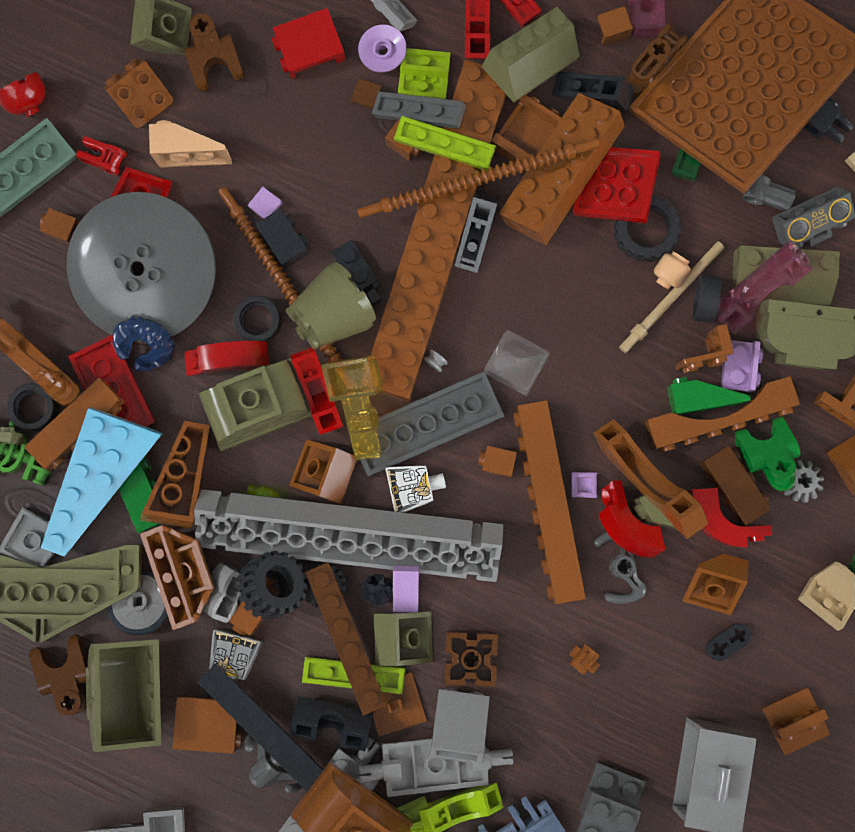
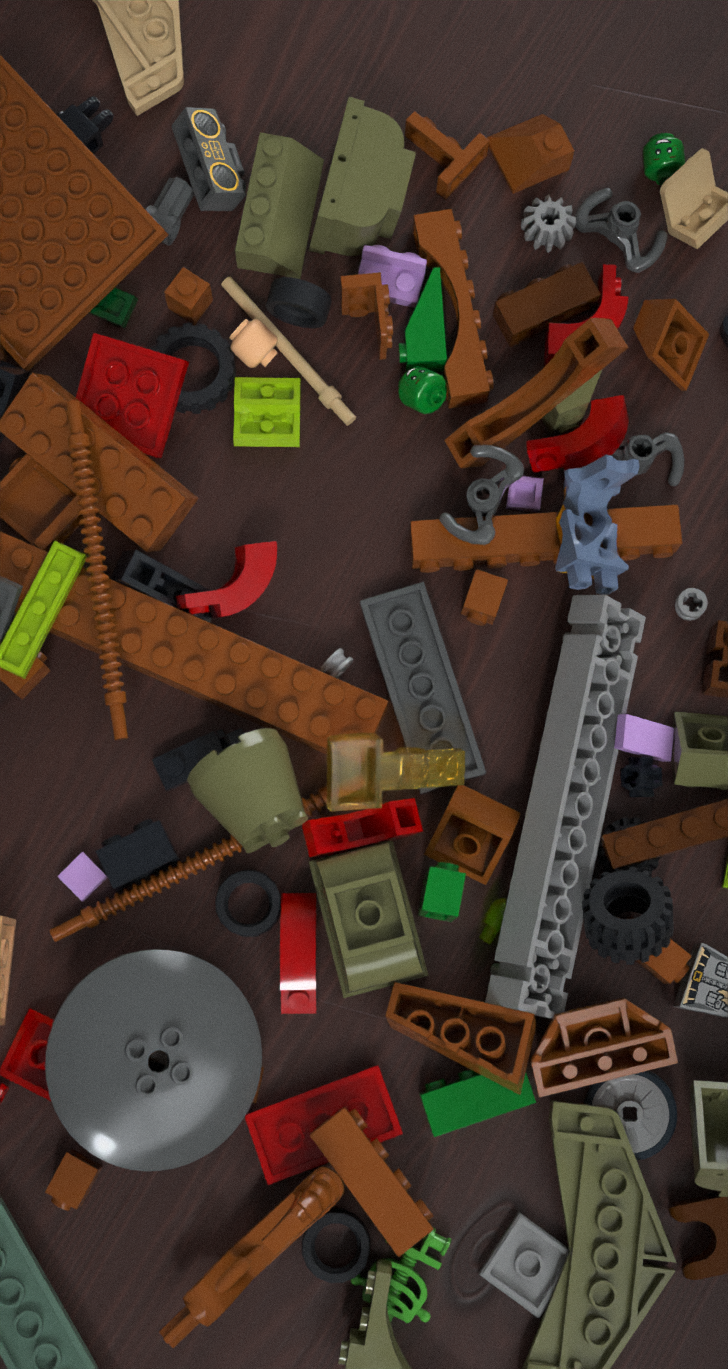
camera: 90 degrees left, 5 degrees down
(99, 465) = (435, 1145): medium azure wing -> none
(152, 334) = (251, 1055): dark blue piece -> none
(224, 598) = (629, 981): light grey brick -> none
(272, 449) = (442, 892): none -> green brick
(412, 486) = (507, 715): torso -> none
(482, 286) = (249, 580): none -> red arch
(516, 362) = (350, 559): clear slope -> none
(519, 622) = (683, 610): none -> light grey bush
(542, 525) = (580, 543): none -> sand blue hips
(543, 455) = (488, 507): none -> dark grey piece
(621, 287) = (266, 412): none -> lime slope
(652, 398) = (422, 390): none -> green head
(702, 217) = (188, 296): none -> dark orange brick
(771, 455) = (515, 250): green piece -> none
(782, 268) = (275, 195): clear pink arch -> none
(800, 538) = (620, 228): none -> dark grey piece

